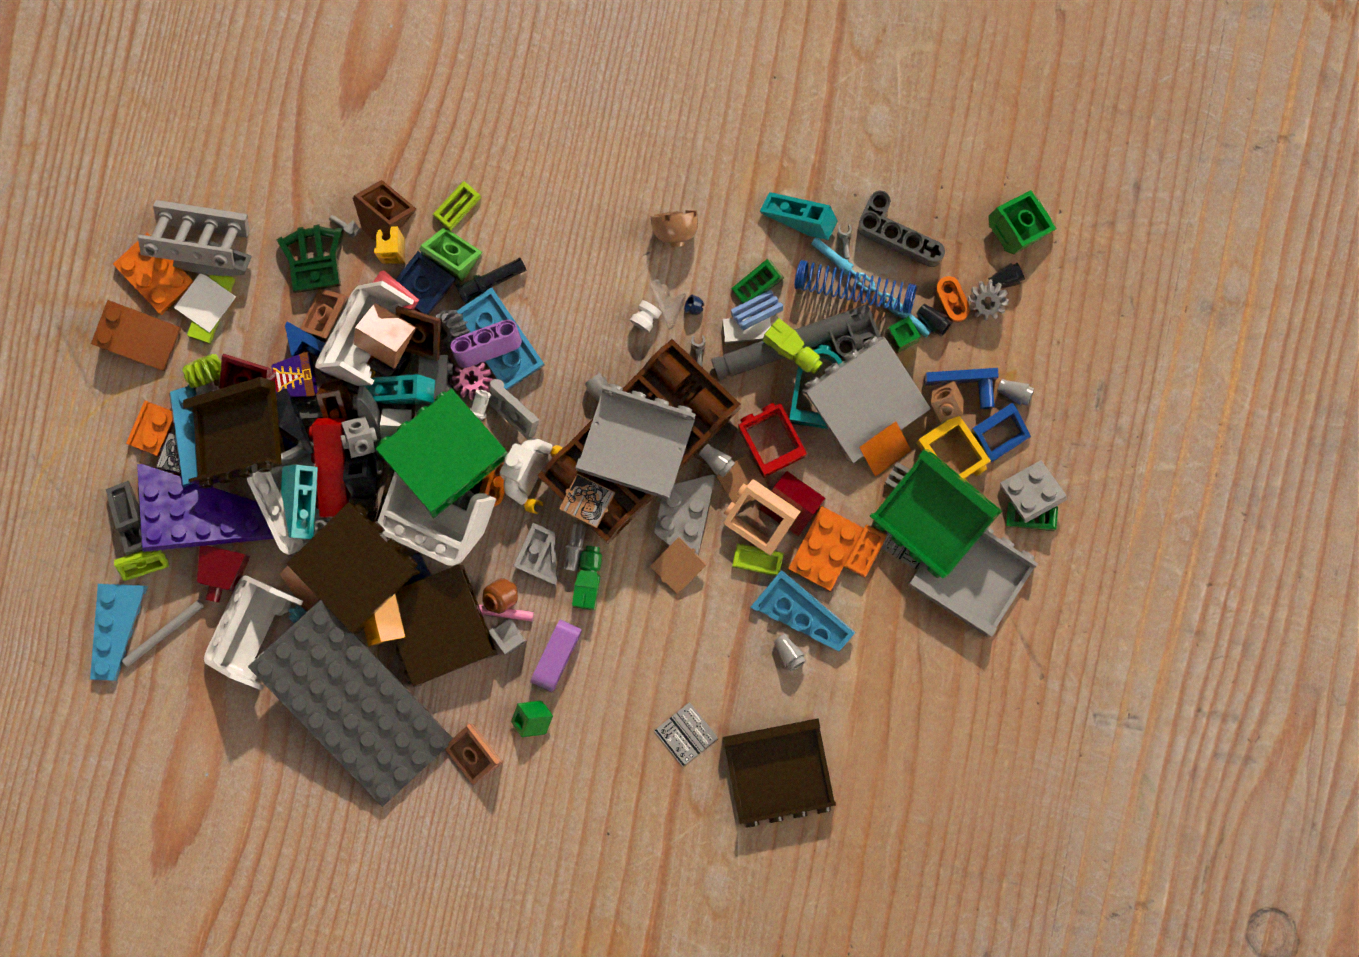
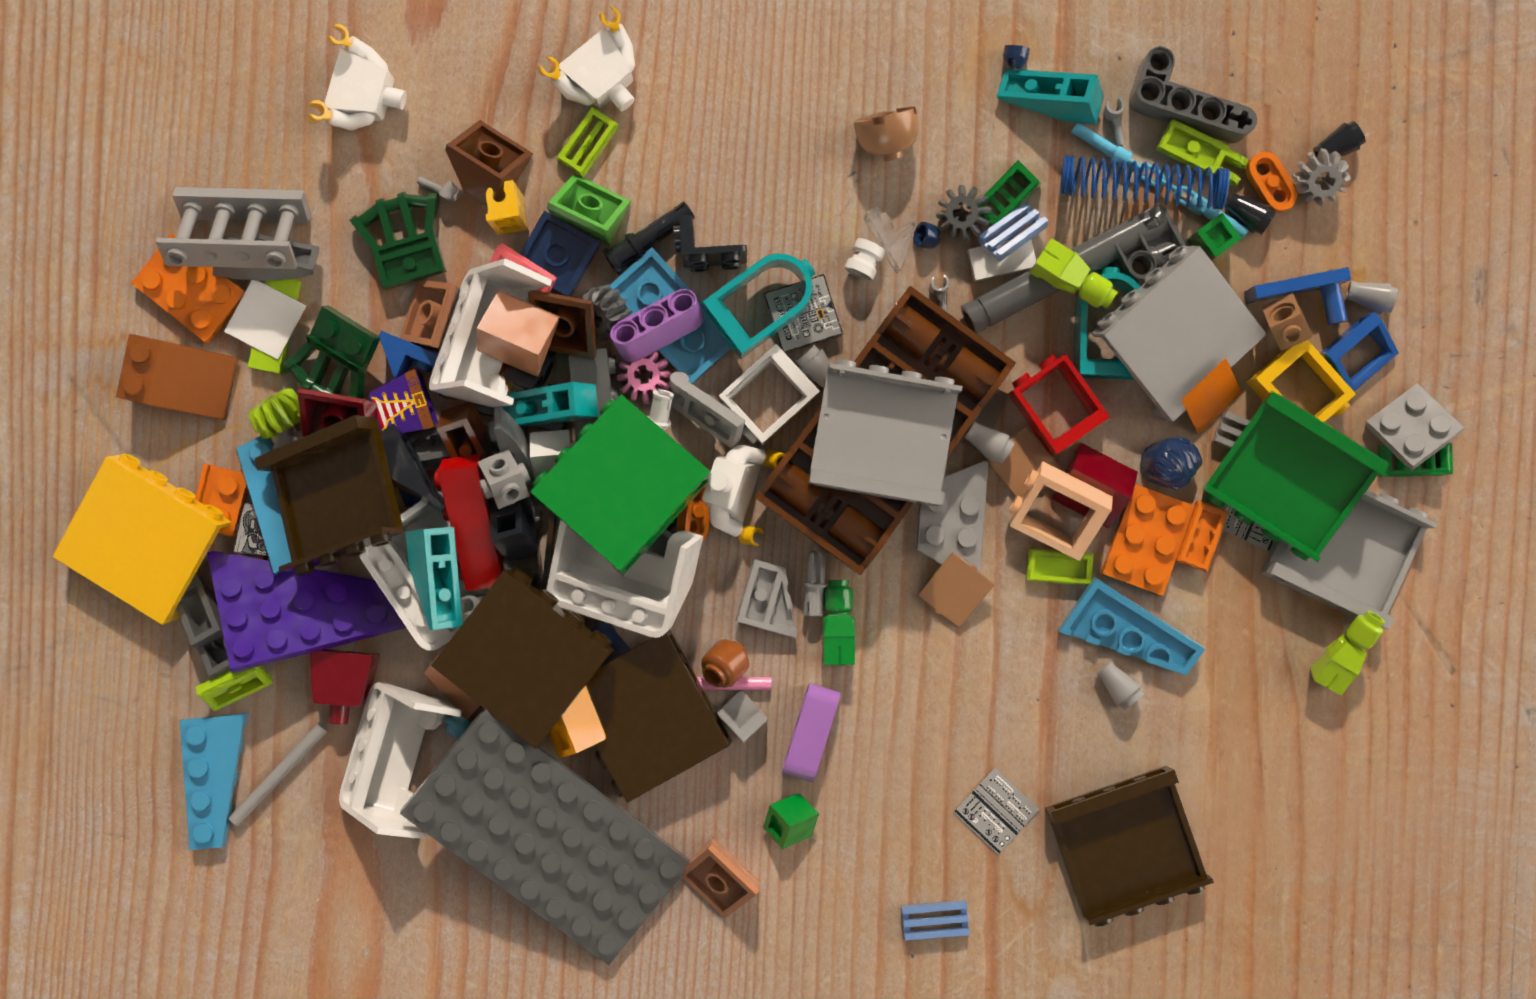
camera: 20 degrees left, 5 degrees up
(91, 446) = (139, 536): none -> yellow panel
(256, 324) = (336, 339): none -> dark green plate
(297, 146) = (358, 87): none -> white torso
(472, 154) = (597, 69): none -> white torso
(525, 300) = (700, 258): none -> black bracket
(539, 352) = (730, 327): none -> teal window
(567, 377) = (793, 375): none -> white window
(587, 501) = (827, 523): piece -> none
(595, 350) = (814, 325): none -> light grey tile
(649, 809) = (935, 932): none -> medium blue tile
(717, 285) = (955, 205): none -> dark grey gear
(777, 184) = (1015, 56): none -> dark blue hinge
(850, 493) = (1171, 462): none -> dark blue hair
(902, 269) = (1198, 150): none -> lime hinge
(959, 649) = (1346, 654): none -> lime piece
(1020, 222) = (1348, 67): green slope -> none

